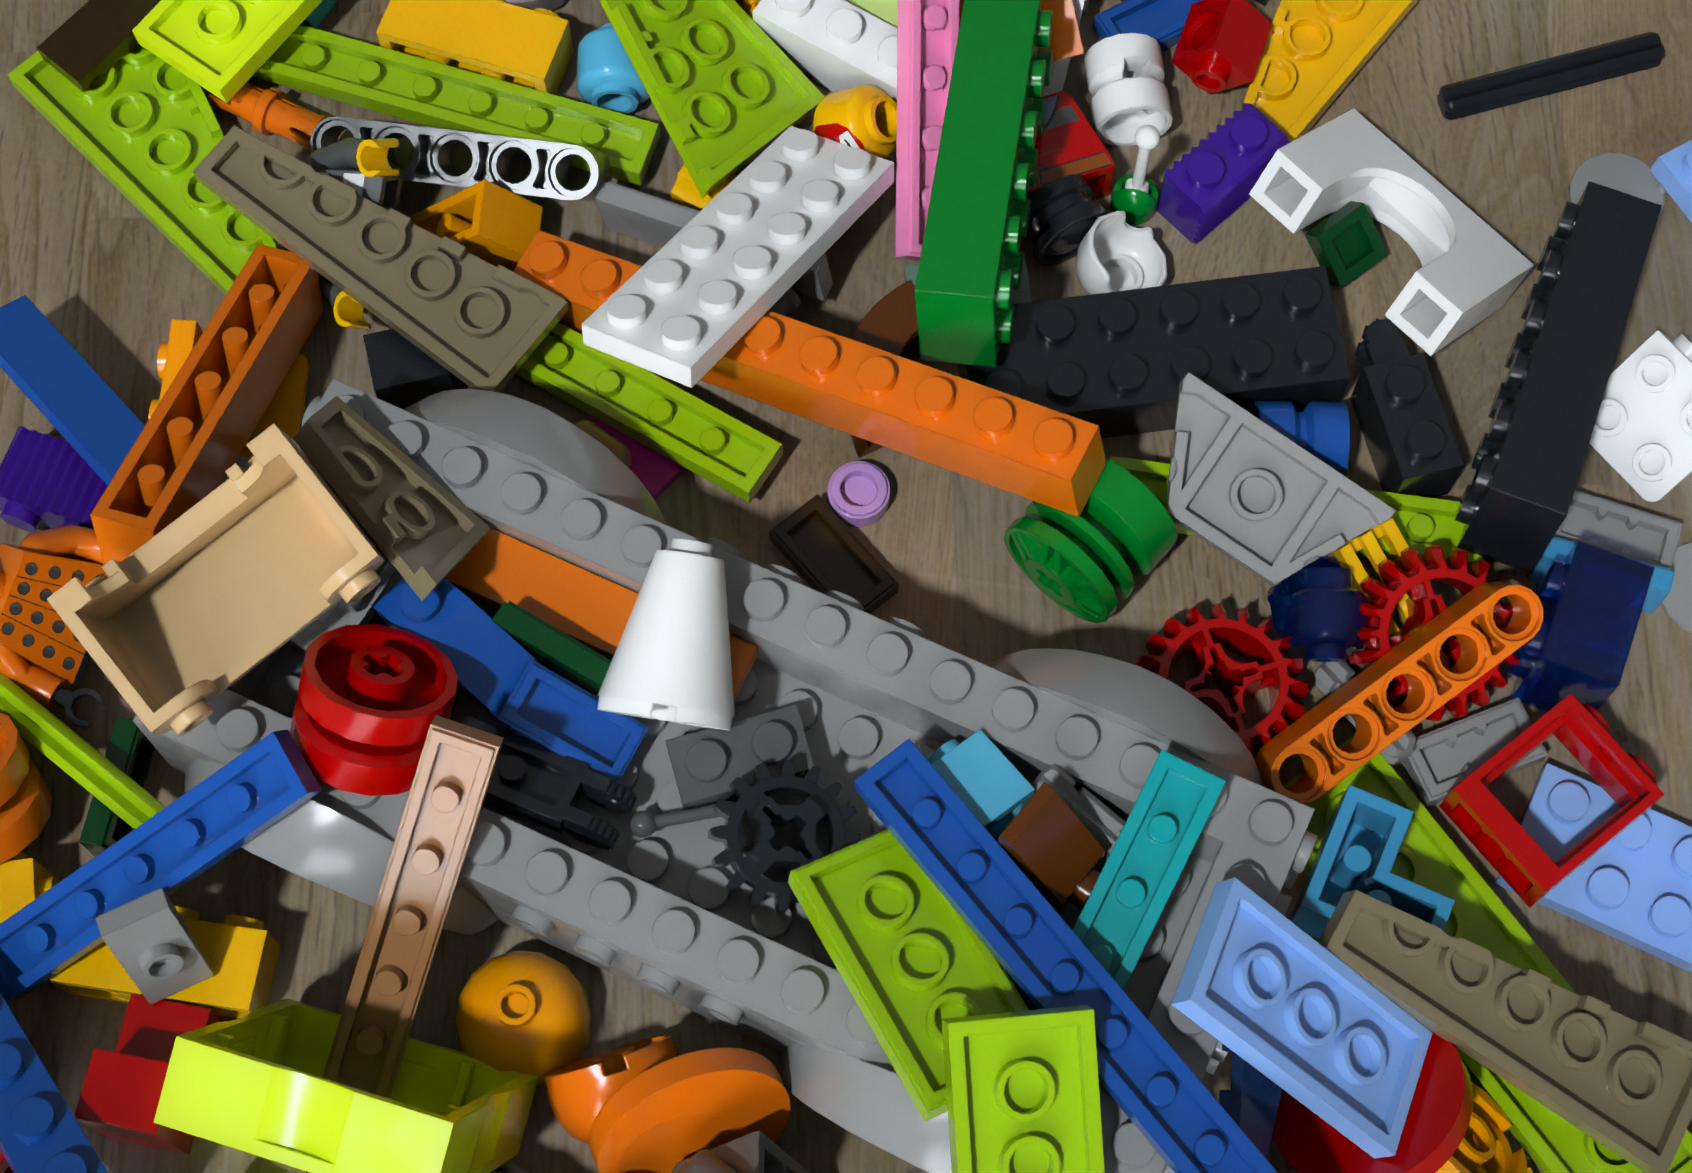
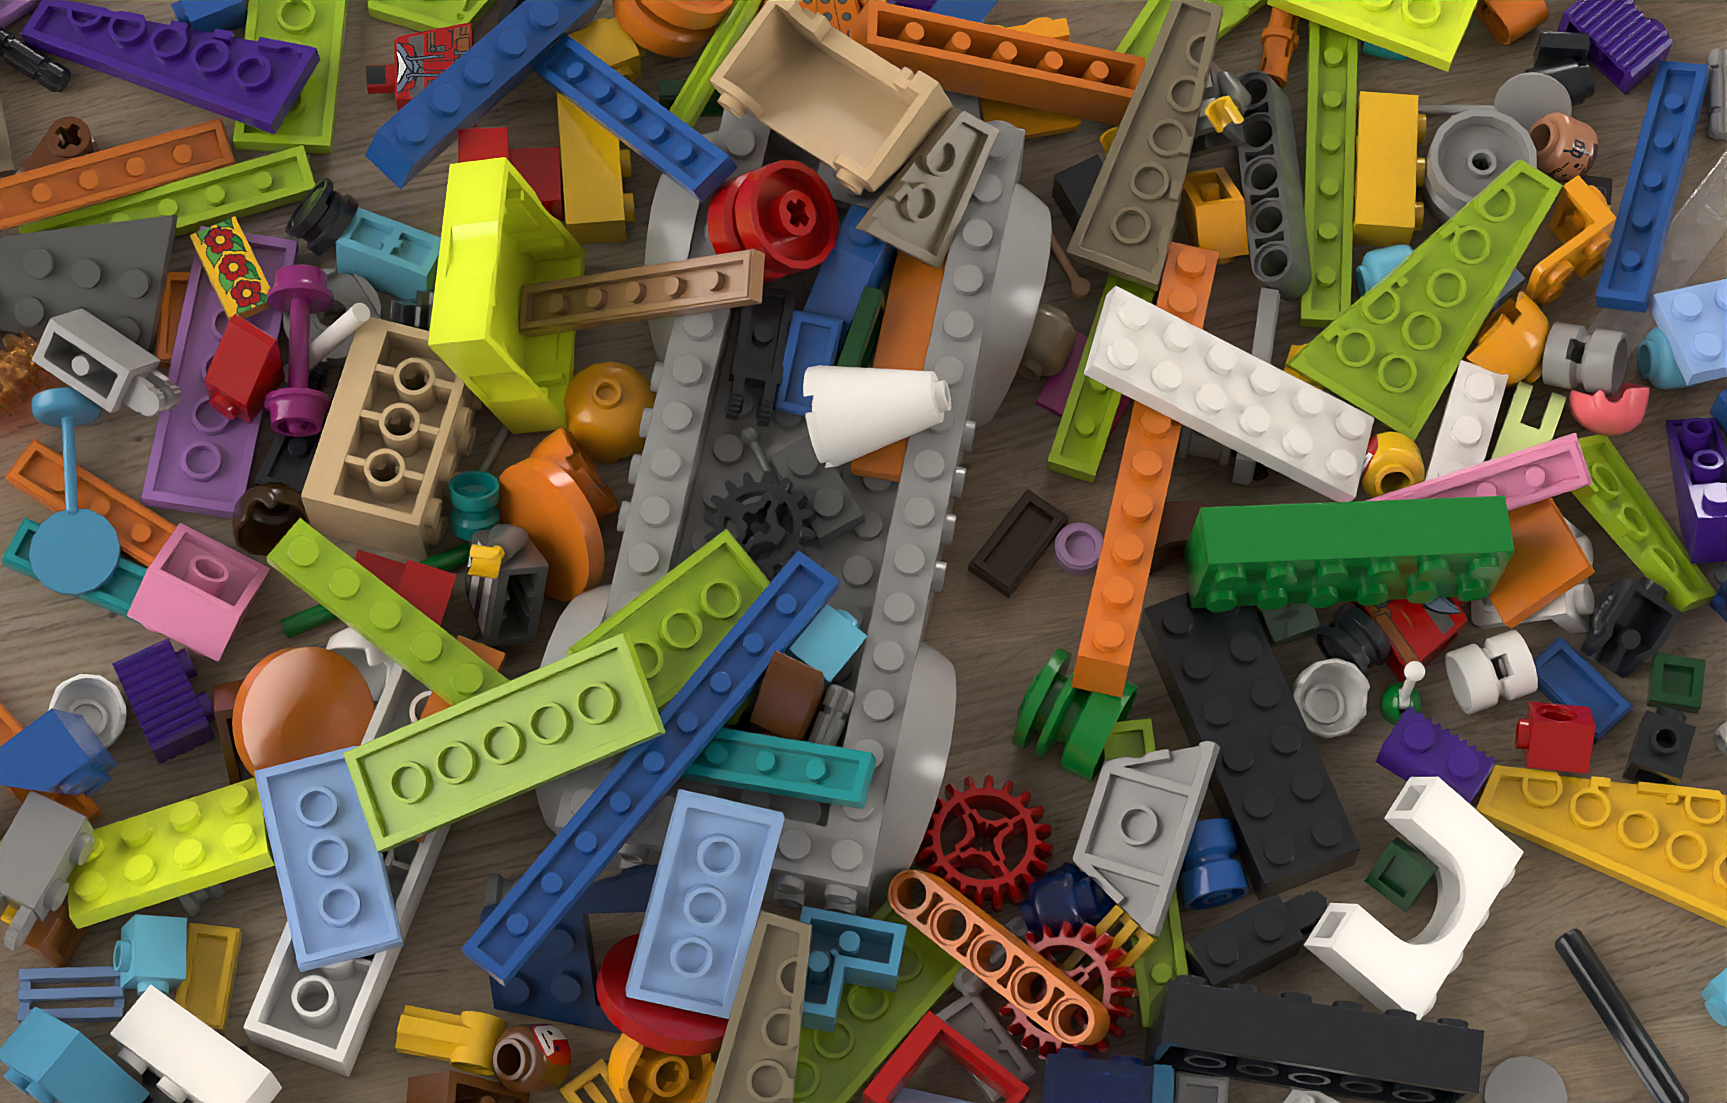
camera: 75 degrees right, 0 degrees up
(154, 946) = (585, 144): light grey plate -> none

